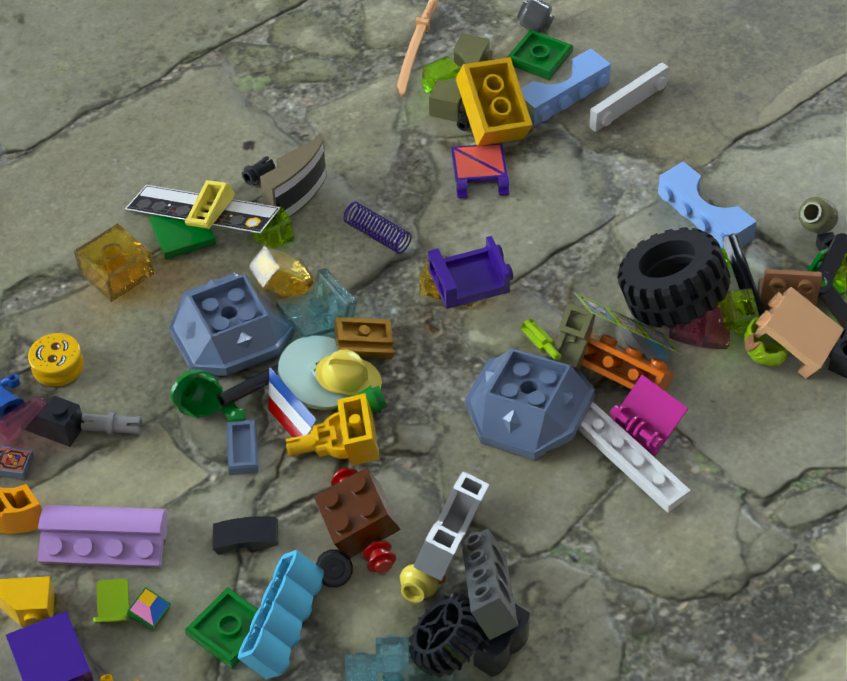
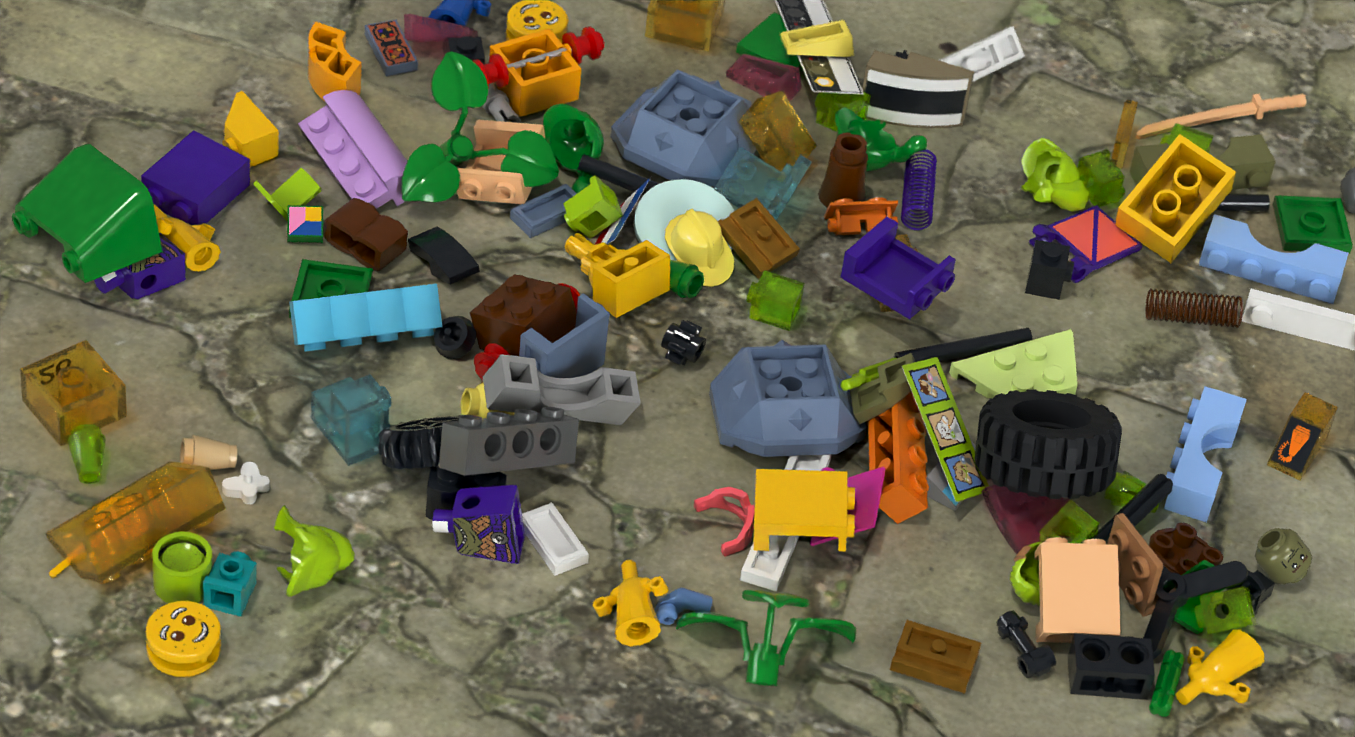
camera: 50 degrees right, 5 degrees down
(108, 378) = (540, 69): none -> light orange brick
(127, 433) = (432, 170): none -> green plant
(182, 450) = (483, 176): none -> light nougat panel
(191, 573) = (366, 234): none -> reddish brown brick
(221, 254) = (774, 76): none -> clear pink slope
(271, 418) = (592, 209): none -> lime brick
(280, 131) = (988, 53): none -> white plate
(326, 231) = (880, 144): none -> green piece
(344, 256) = (845, 170): none -> reddish brown plant
(374, 279) = (845, 215): none -> orange hinge
(404, 98) = (1124, 133): none -> clear yellow tile
(412, 522) = (577, 351): none -> sand blue panel
(422, 160) = (1053, 176): none -> lime piece
(428, 358) = (775, 300): none -> clear neon green brick
(435, 431) = (683, 342): none -> black gear
(436, 131) = (1101, 178): none -> clear neon green brick
(499, 199) = (1048, 269): none -> black brick
(533, 280) = (970, 346): none -> black piece
(540, 639) = (485, 523): none -> dark purple torso
(565, 605) = (554, 539): none -> white tile
(573, 151) = (1191, 308): none -> reddish brown piece
(575, 260) = (1031, 365): none -> yellowish green wing
(611, 478) = (746, 513): none -> coral helmet
(646, 441) = (802, 505): none -> yellow panel
(669, 588) = (635, 613): none -> yellow piece
(672, 553) = (680, 600): none -> medium blue arm
(720, 153) = (1303, 436): none -> slope
(758, 532) = (764, 659): none -> green plant
(781, 259) = (1182, 548): none -> reddish brown dish
(799, 437) = (935, 656): none -> pearl gold plate
(828, 384) = (1033, 659): none -> black bar

